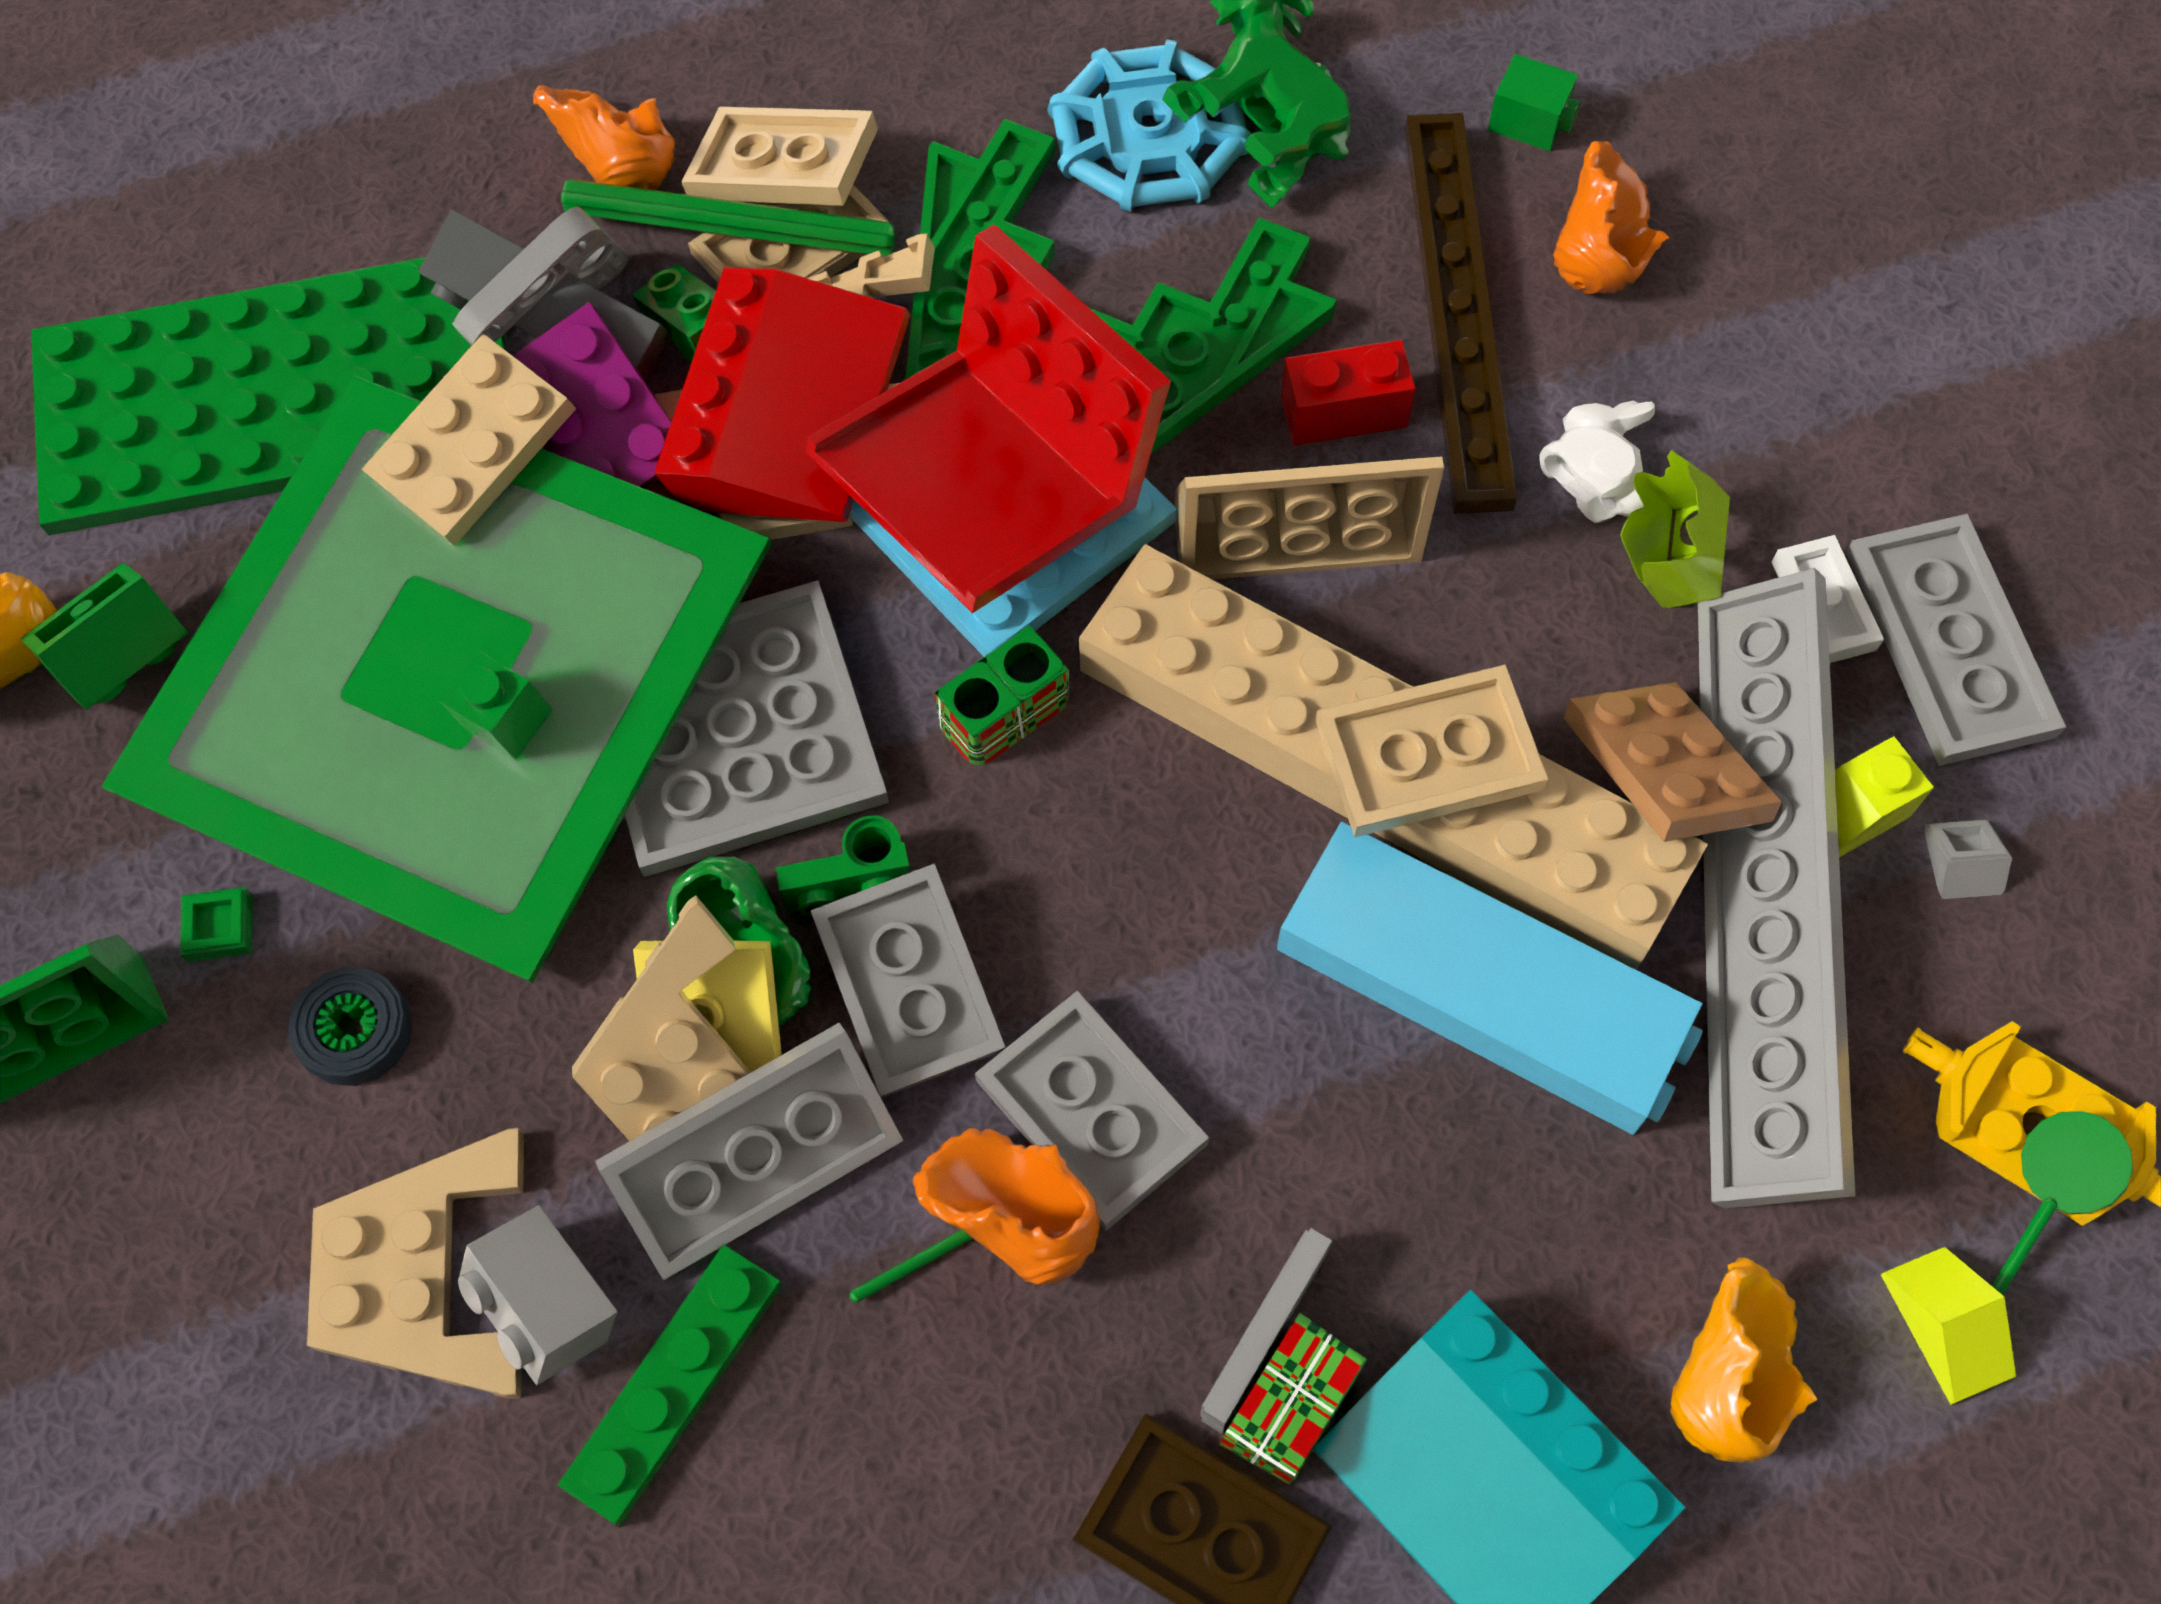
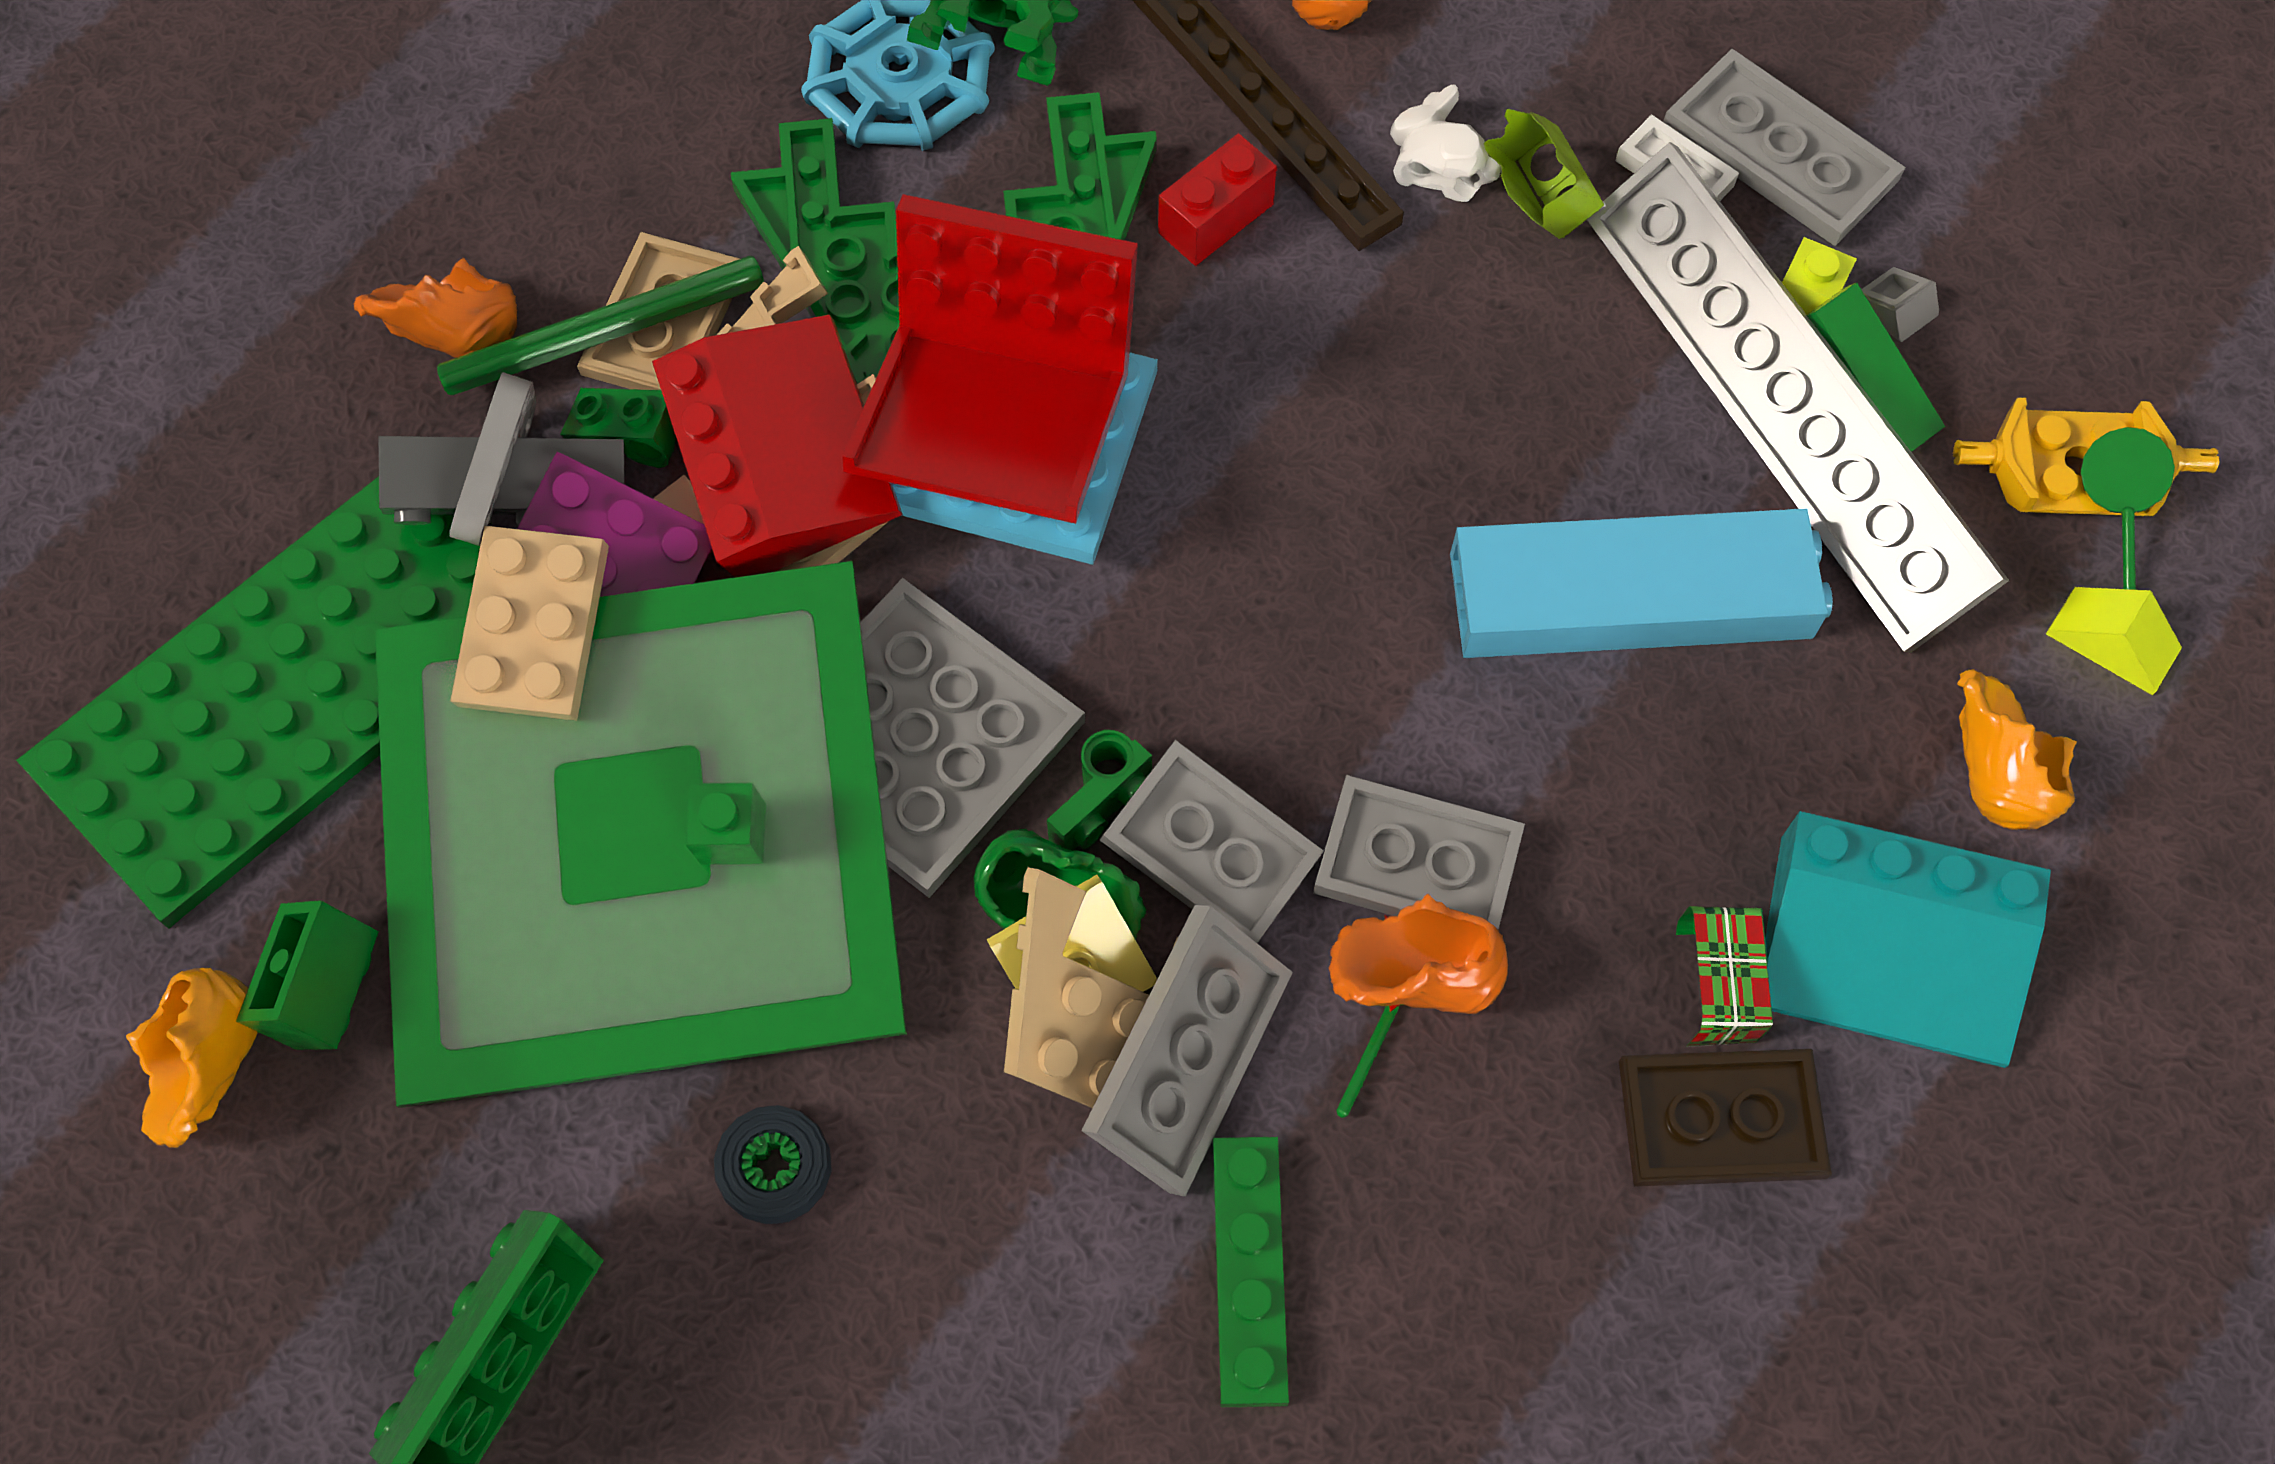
camera: 35 degrees left, 0 degrees up
(216, 924) = (588, 1156): green tile -> none
(387, 1269) = (953, 1335): tan wing -> none
(535, 1295) = (1099, 1268): light grey brick -> none
(781, 155) = (610, 249): tan plate -> none
(1011, 721) = (1122, 630): piece -> none
(1255, 691) = (1443, 460): tan brick -> none
(1264, 1330) = (1666, 940): light grey tile -> none
(1307, 518) = (1262, 313): tan slope -> none
(1430, 750) = (1497, 431): tan plate -> none
(1671, 761) = (1660, 344): medium nougat plate -> none
(1878, 911) = (1876, 364): none -> green tile

